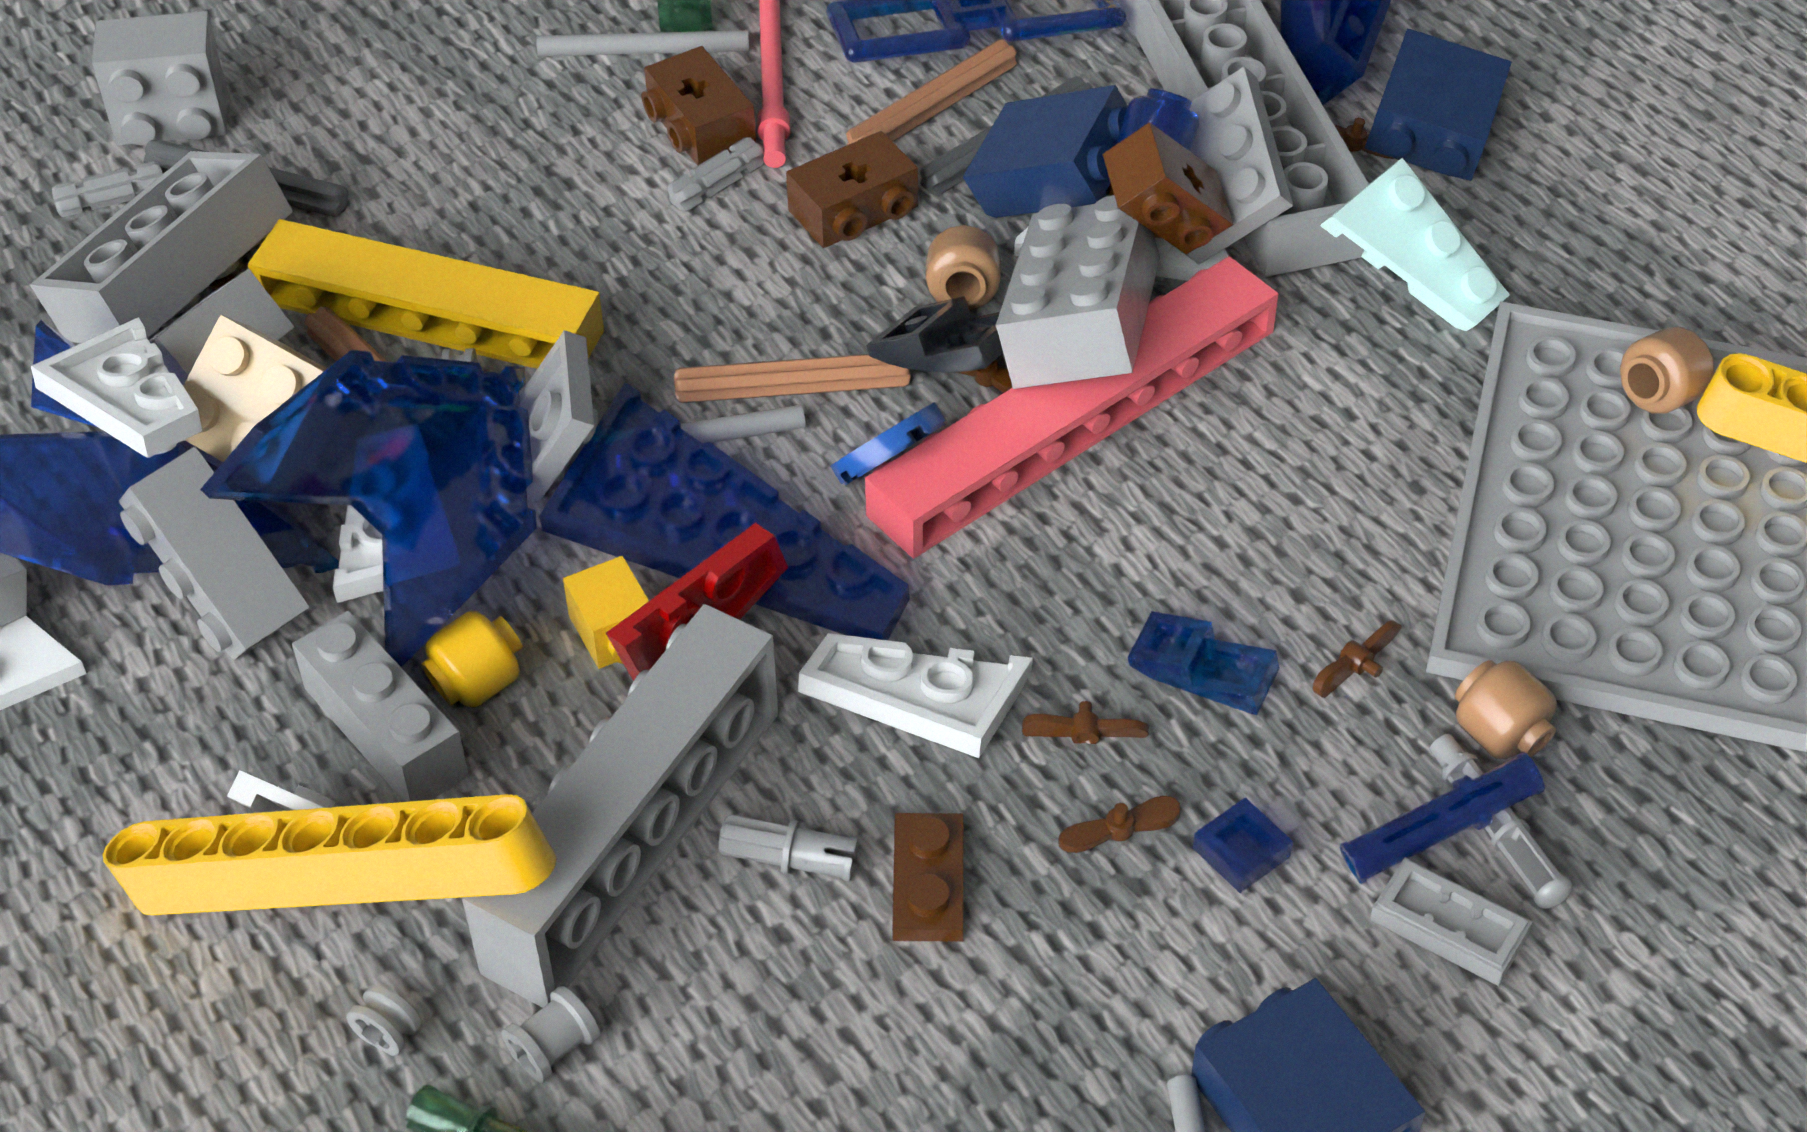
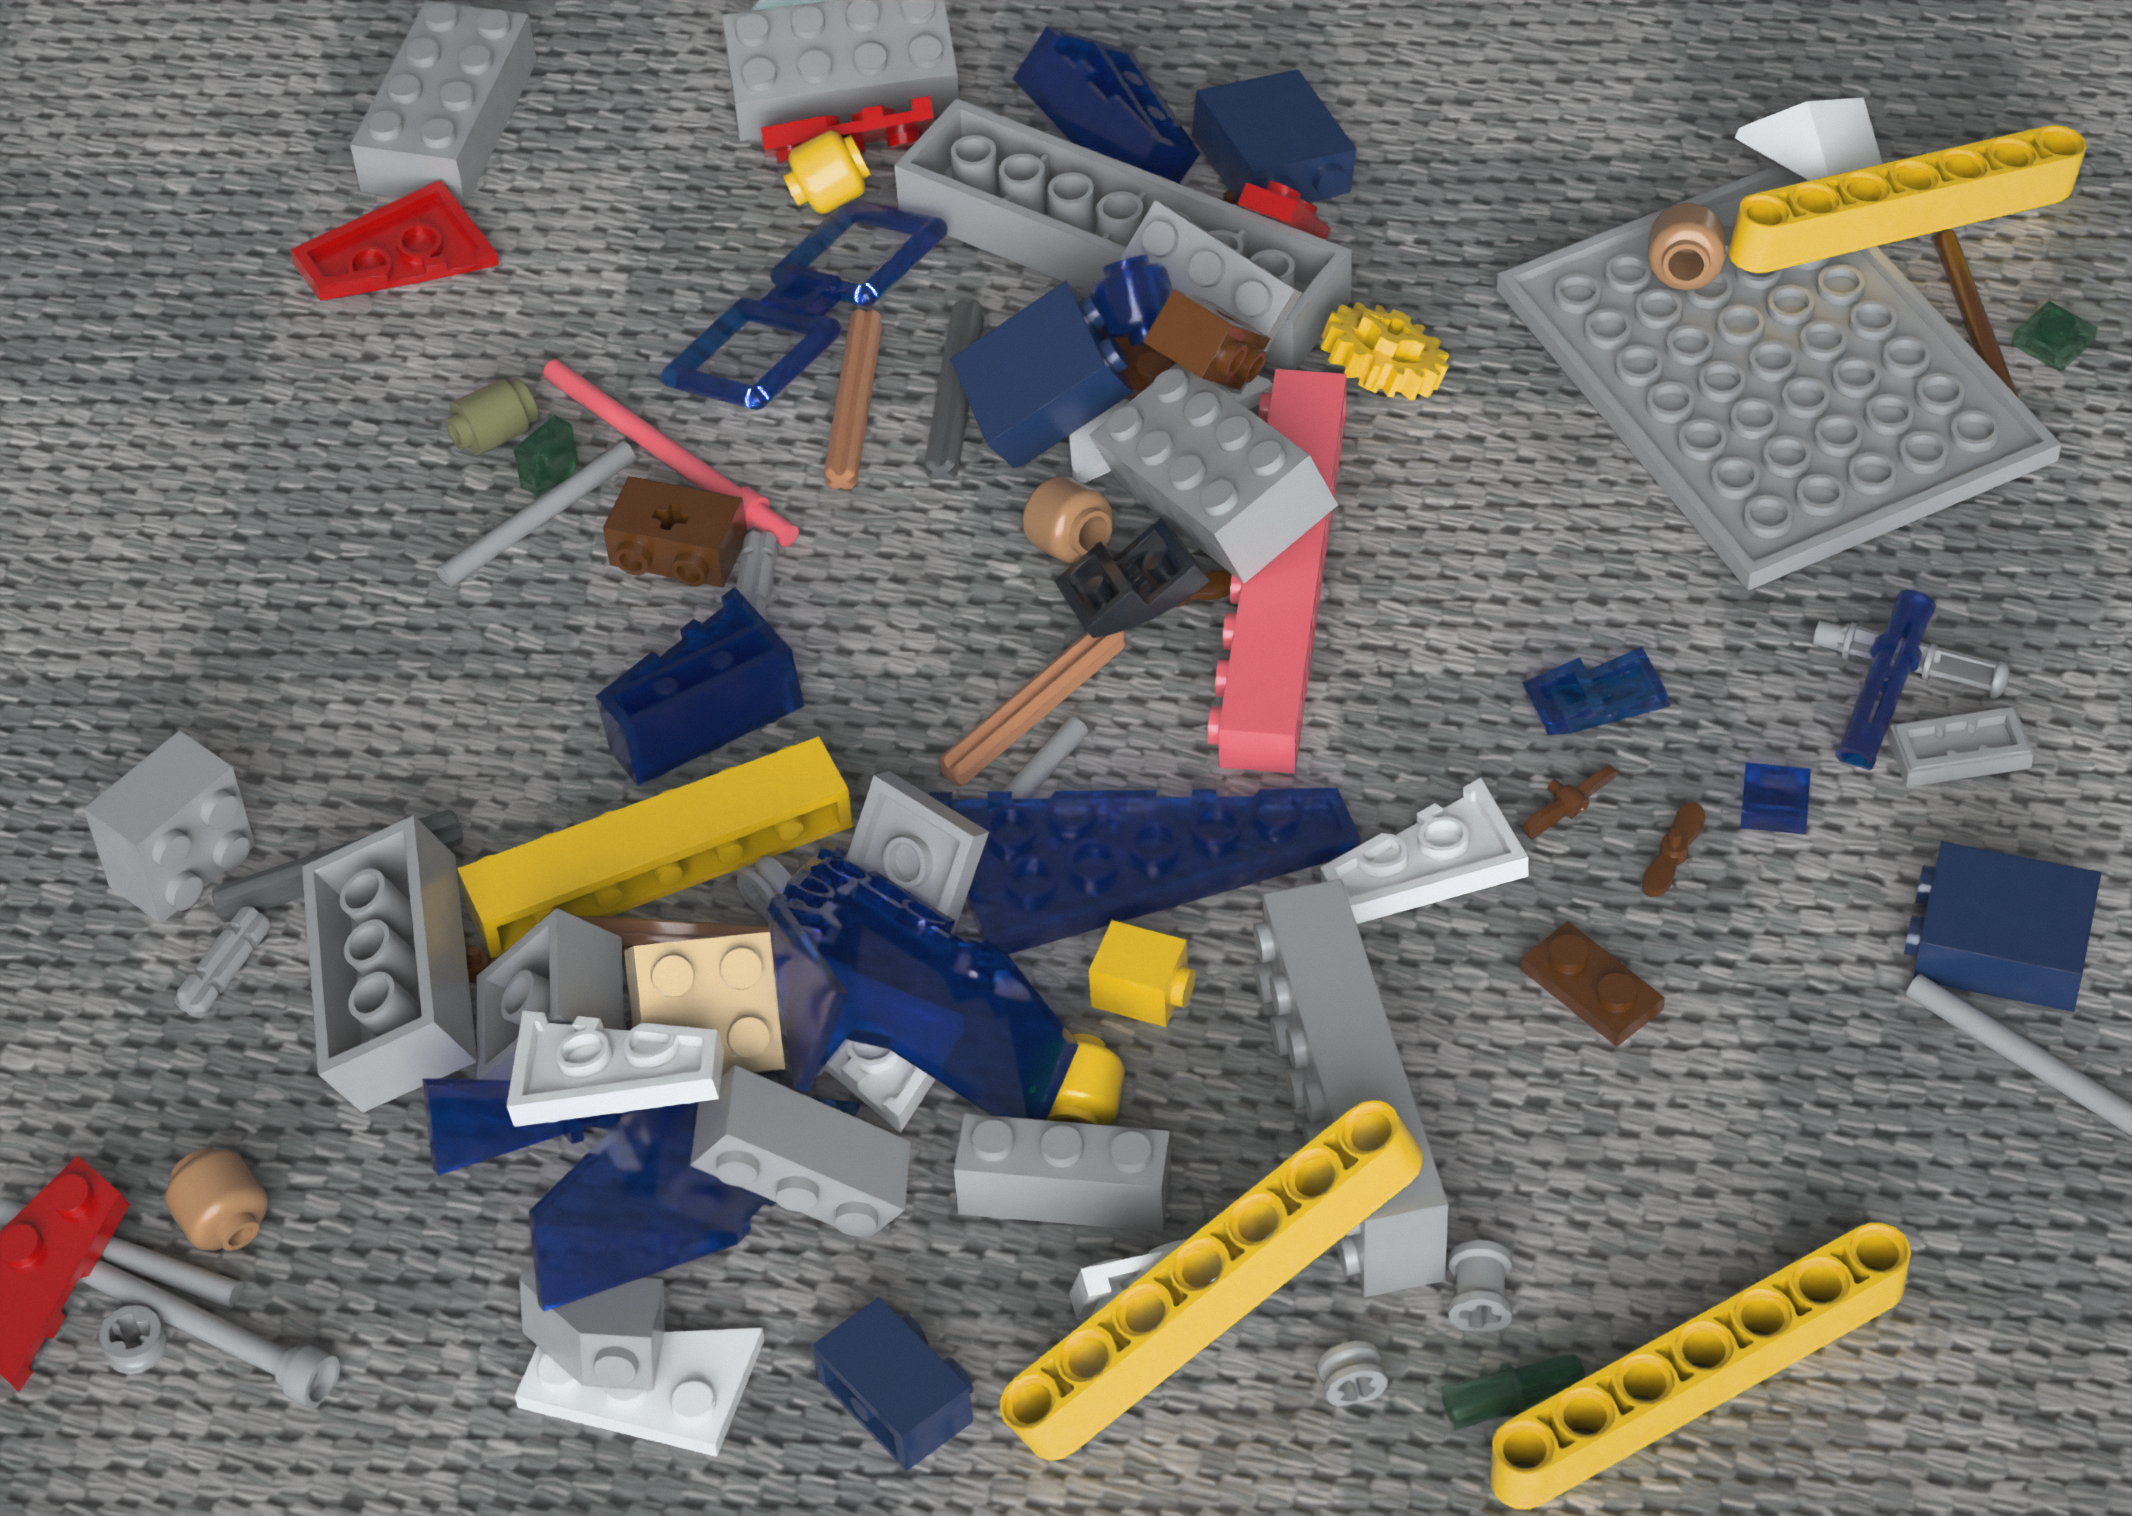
camera: 40 degrees left, 0 degrees up
(98, 764) = (894, 1382): none -> dark blue brick
(571, 217) = (701, 692): none -> clear blue wedge
(726, 581) = (1222, 916): red wing -> none
(788, 846) = (1477, 1036): light grey axle -> none
(852, 189) = (898, 516): reddish brown brick -> none
(888, 444) = (1196, 692): blue tile -> none
(1338, 300) = (1384, 351): none -> yellow gear
(1355, 659) = (1693, 614): reddish brown piece -> none
(1366, 141) = (1284, 206): none -> red plate
(1415, 238) = (1405, 264): light aqua wing -> none
(1506, 709) = (1841, 574): medium nougat head -> none

